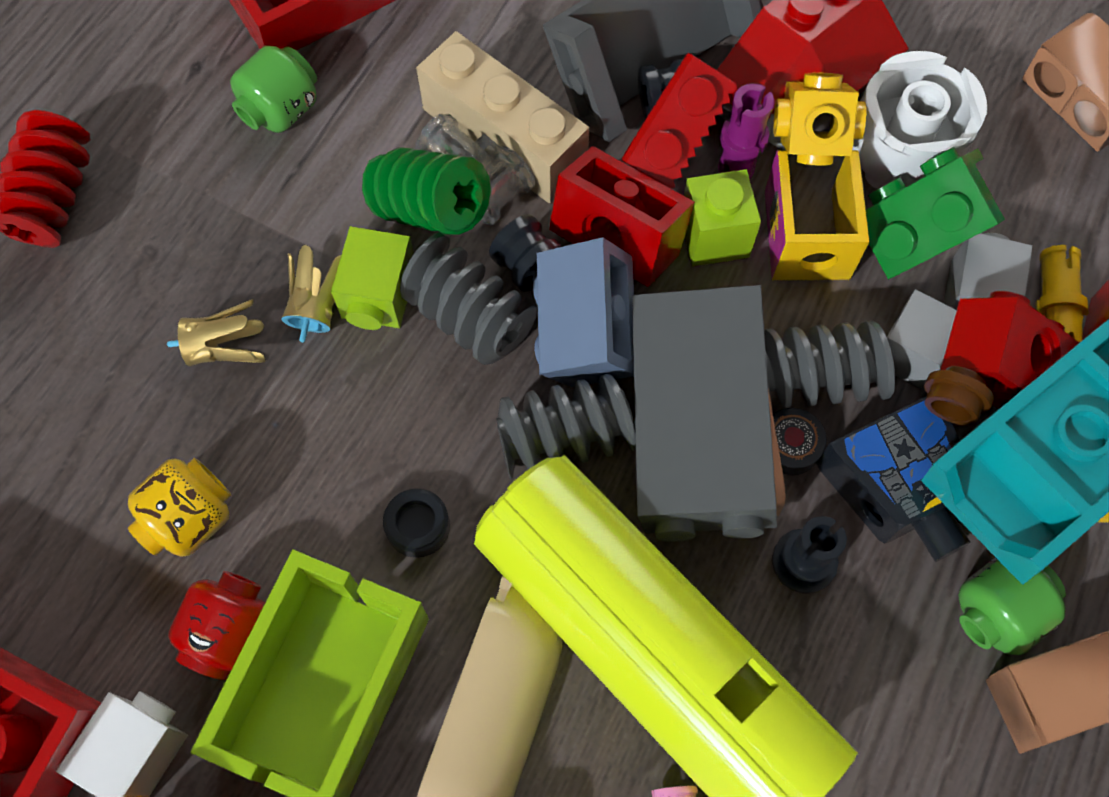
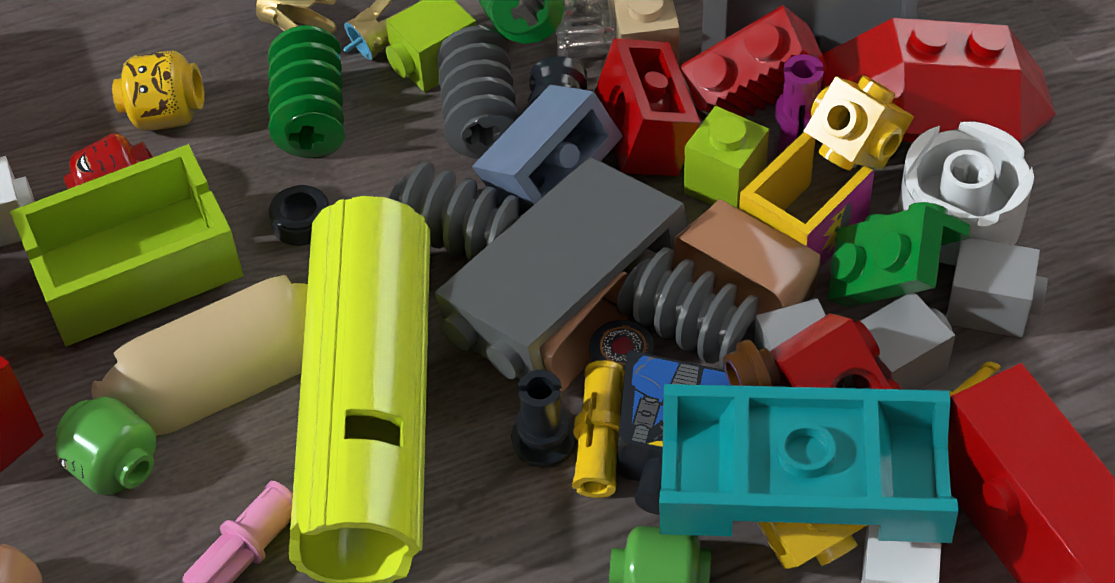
camera: 45 degrees right, 15 degrees down
(312, 412) = (306, 92): none -> green piece
(826, 291) = (749, 256): none -> nougat piece
(879, 557) = (599, 430): none -> yellow pin
(1013, 174) = (995, 287): none -> light grey brick

